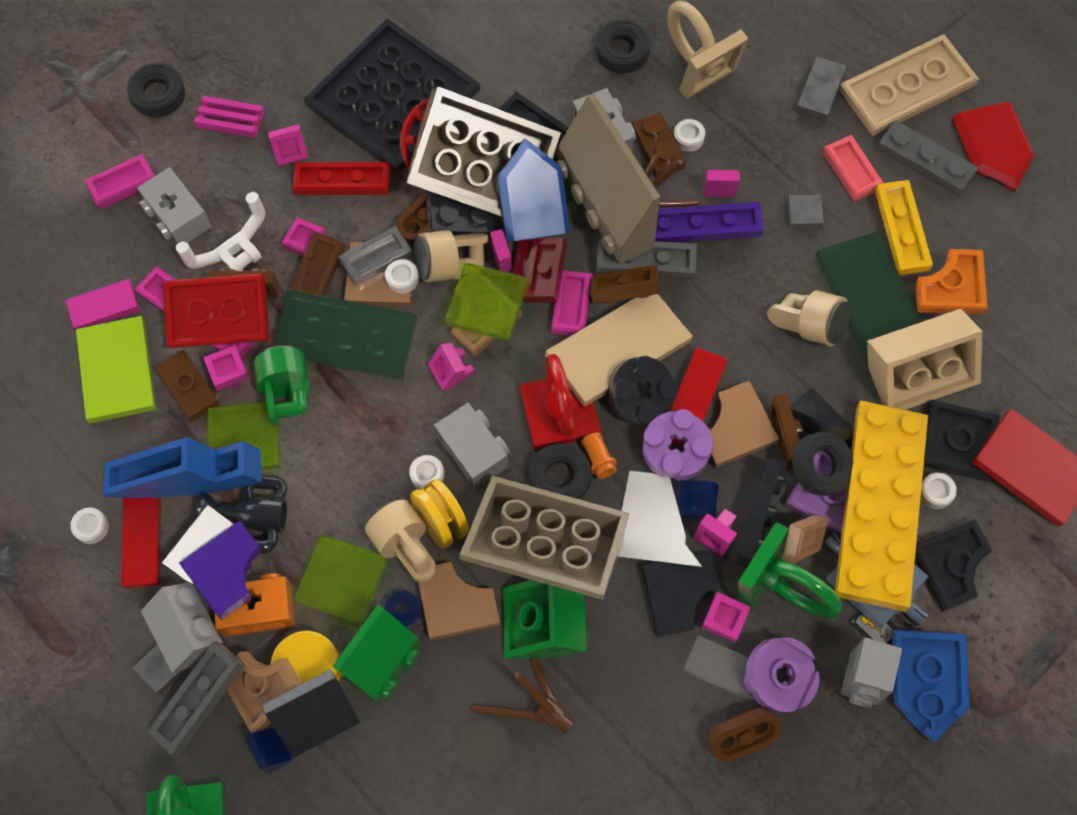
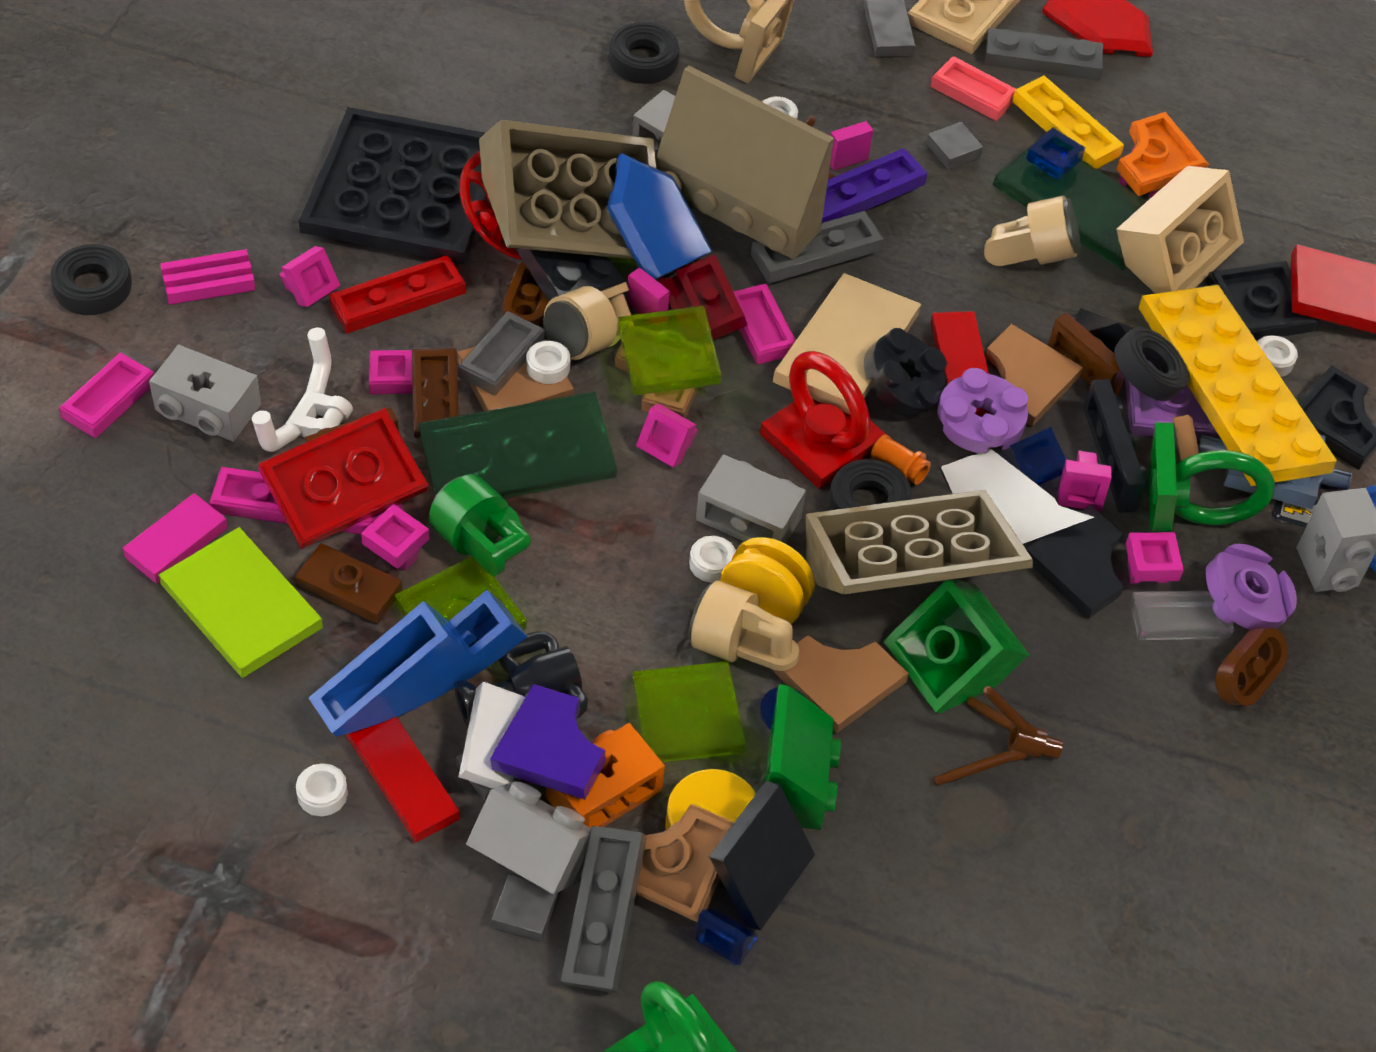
camera: 35 degrees left, 15 degrees down
(625, 284) = (814, 276): reddish brown plate -> none
(870, 253) = (1055, 153): none -> clear blue plate

